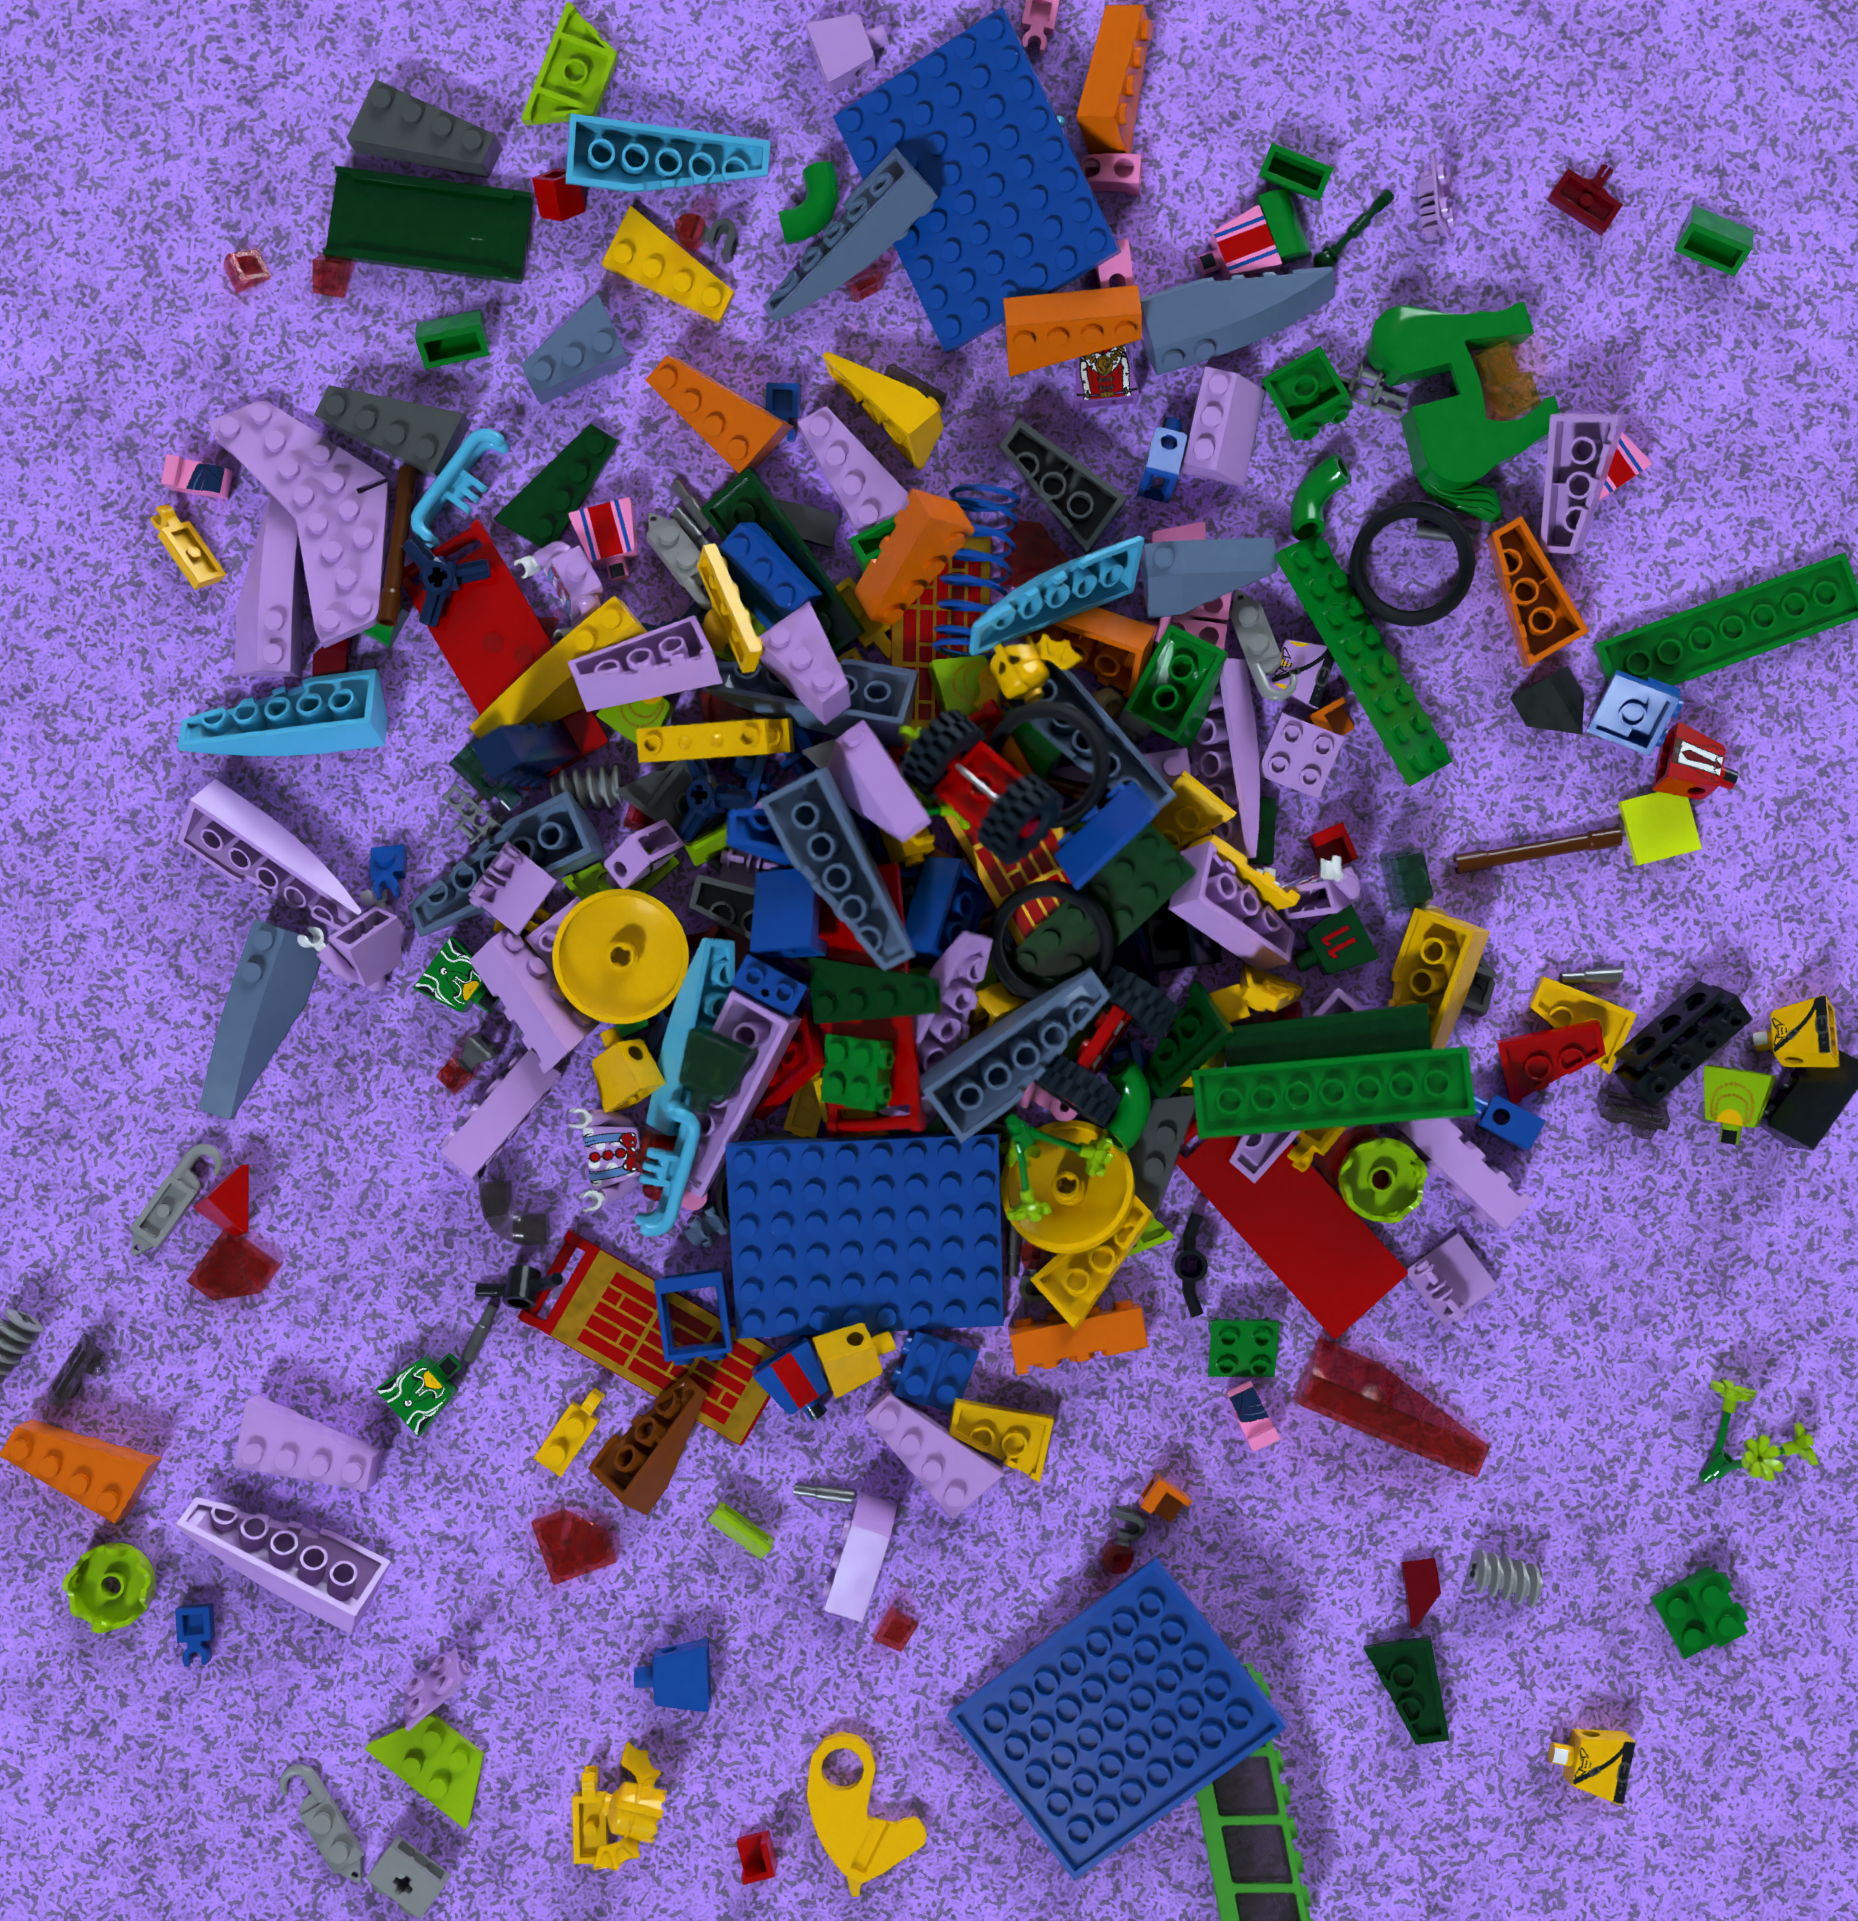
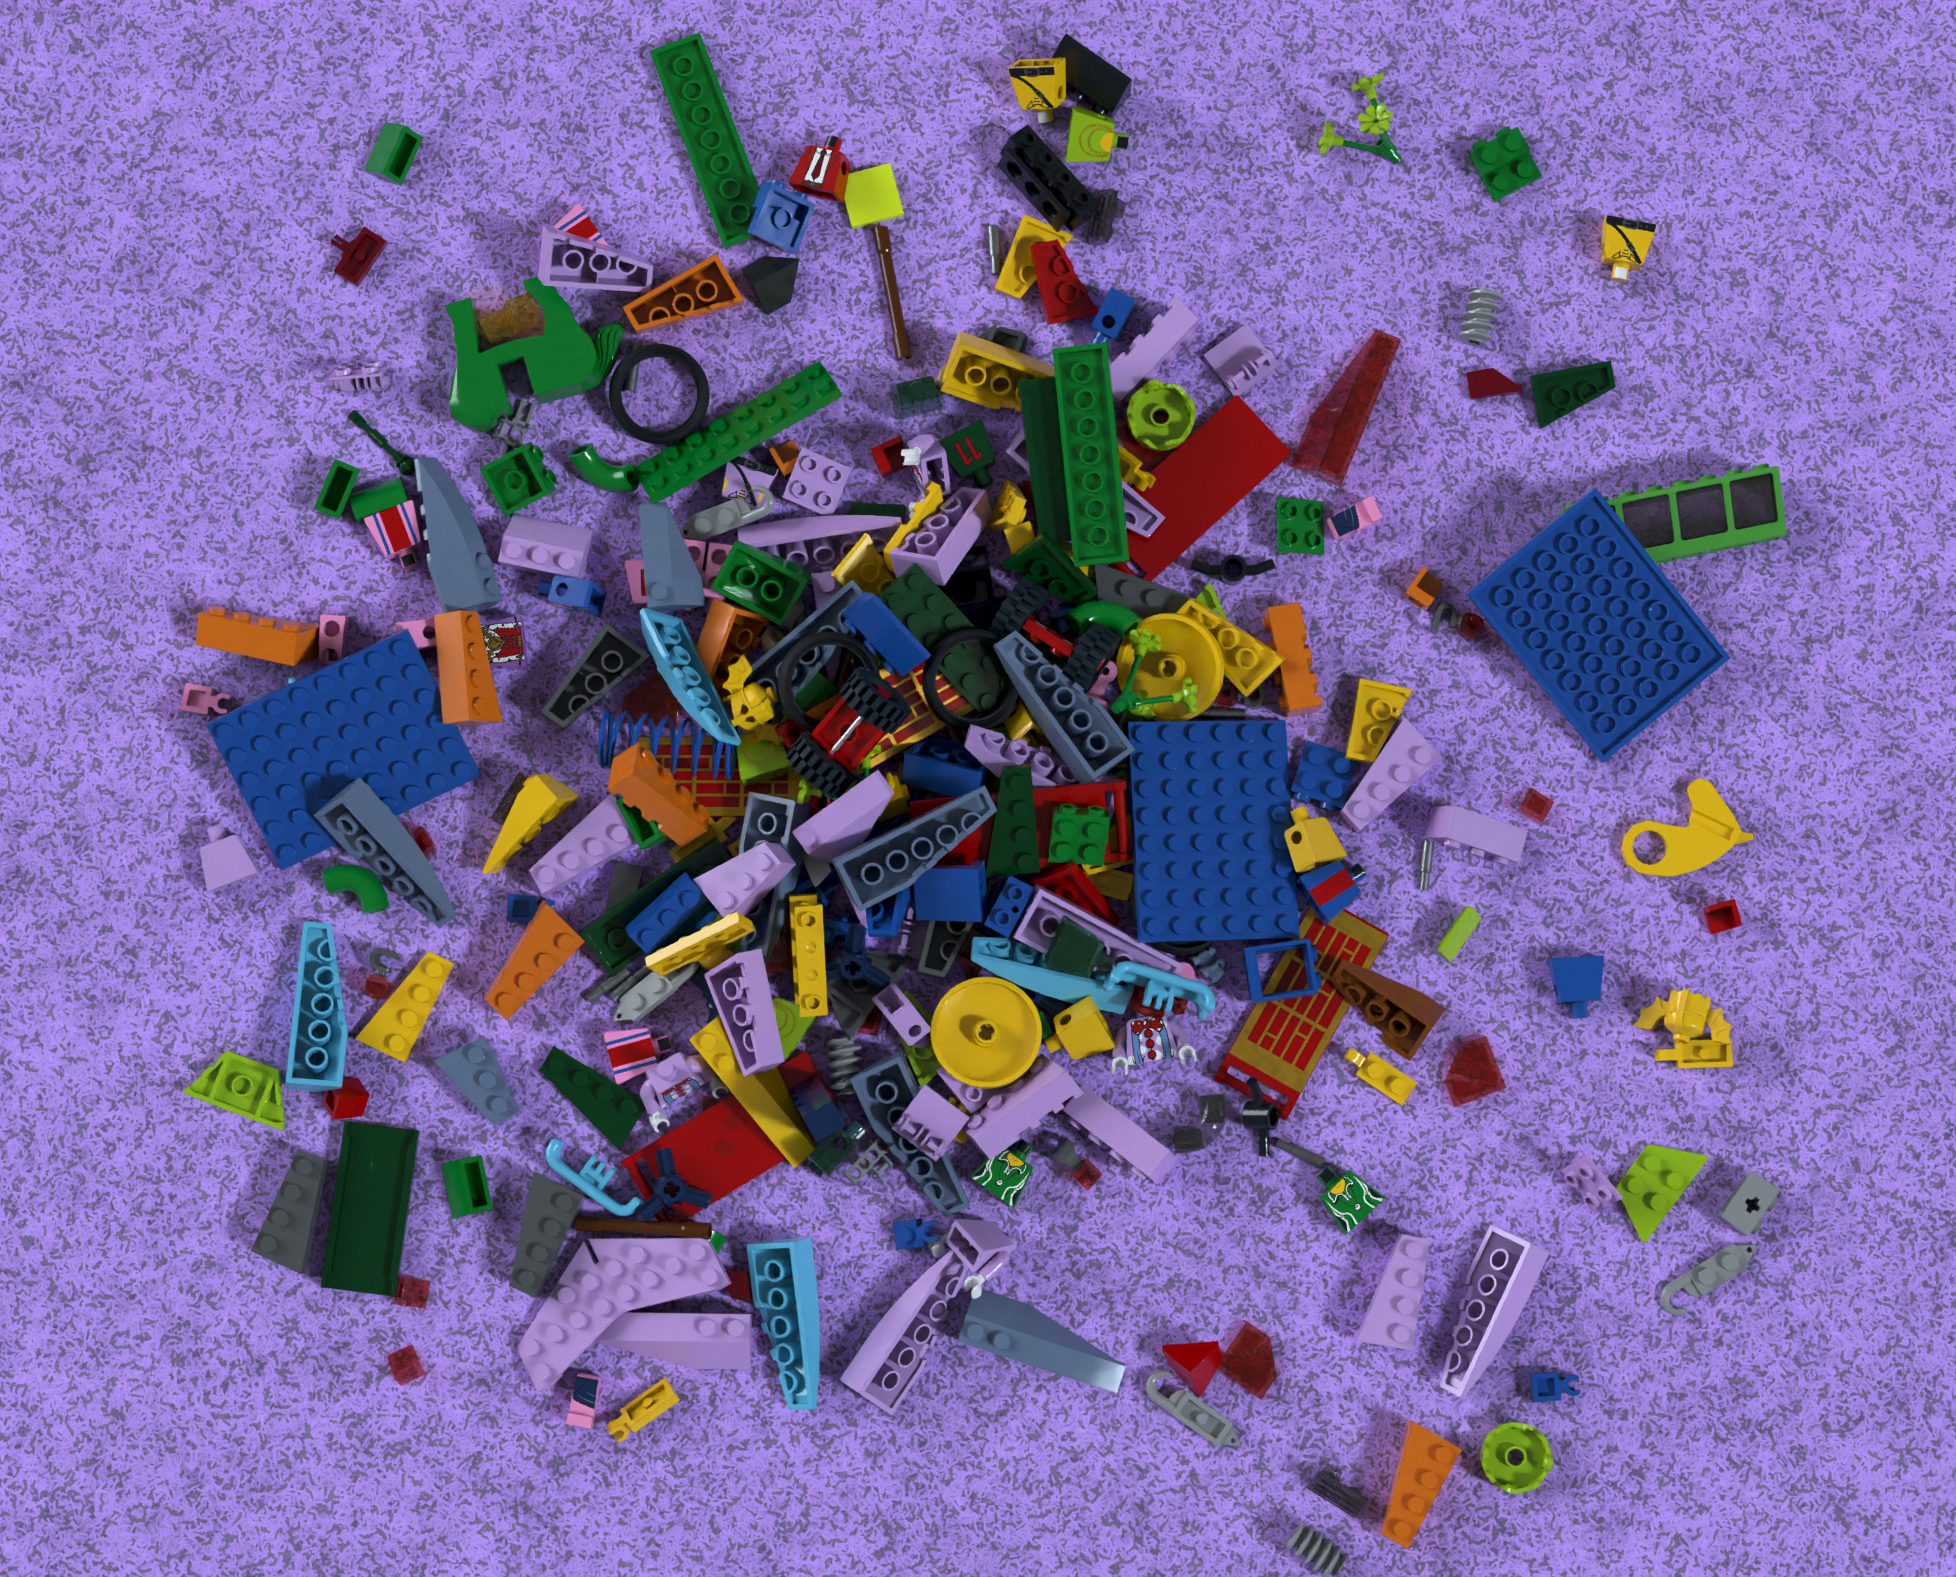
camera: 90 degrees left, 5 degrees down
(708, 845) = (888, 958): lime slope -> none

